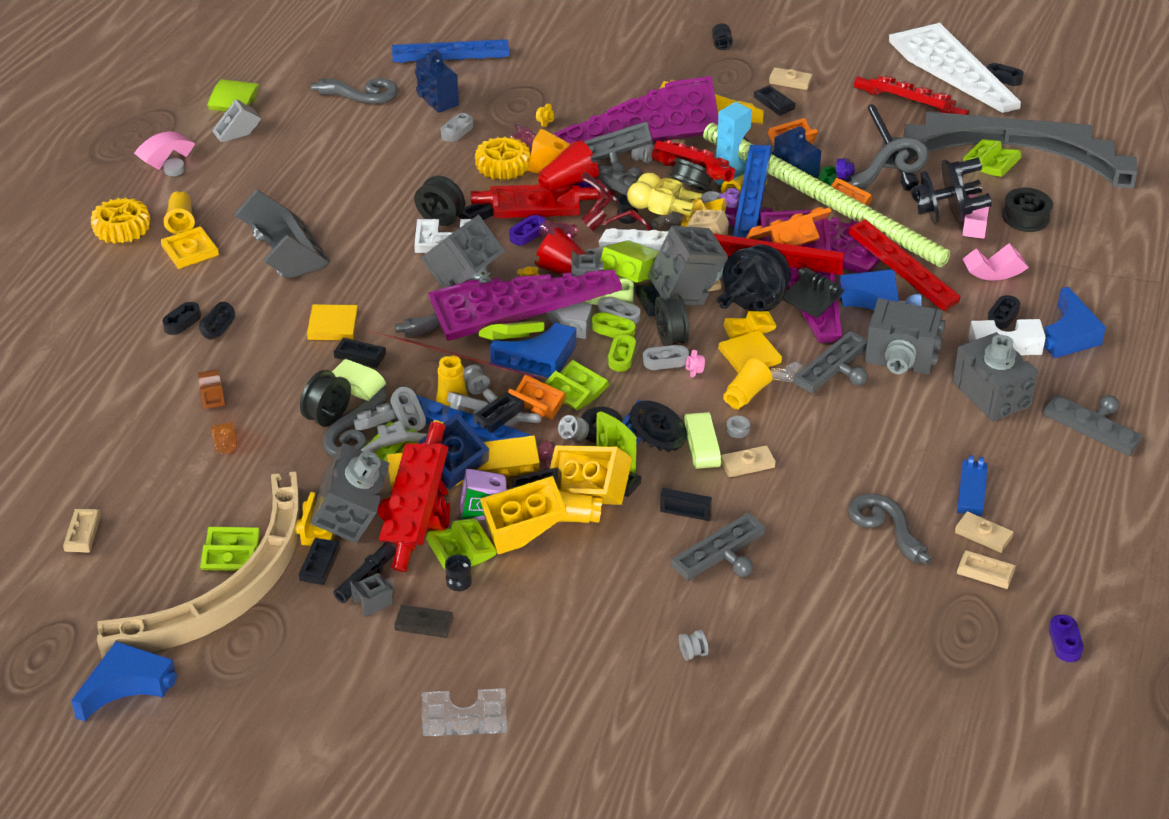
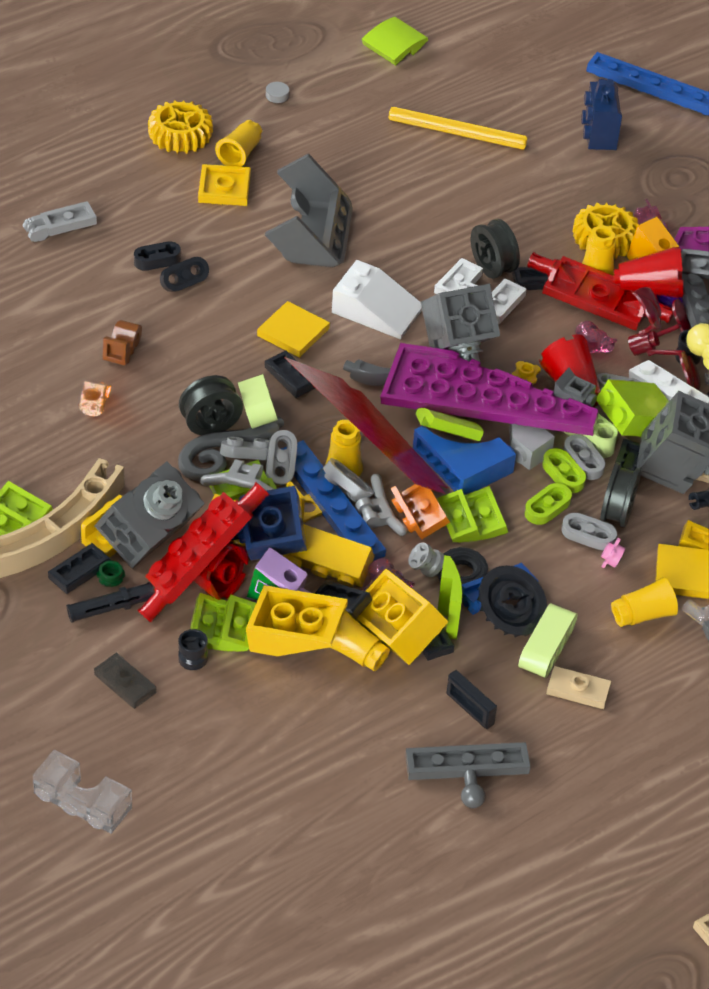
camera: 30 degrees right, 5 degrees up
(81, 327) = (60, 221): none -> light grey hinge
(159, 147) = (274, 64): bright pink brick -> none
(236, 122) = (372, 70): light grey slope -> none
(333, 136) = (458, 128): none -> yellow axle
(347, 553) = (110, 574): none -> dark green plate
(372, 94) = (501, 73): dark grey plant -> none
(373, 593) = (98, 627): dark grey window -> none
(378, 275) = (375, 300): none -> white slope
(457, 127) = (591, 174): light grey plate -> none
(475, 379) = (374, 460): light grey wheel -> none
(501, 414) = (366, 508): black tile -> none
(515, 168) = (601, 249): none -> yellow plant
(526, 230) = (563, 321): dark purple plate -> none
(545, 115) = (692, 202): yellow plate -> none
(693, 644) = (349, 847): light grey wheel -> none
(738, 427) = (601, 645): light grey tile -> none
(907, 544) = (665, 868): dark grey plant -> none

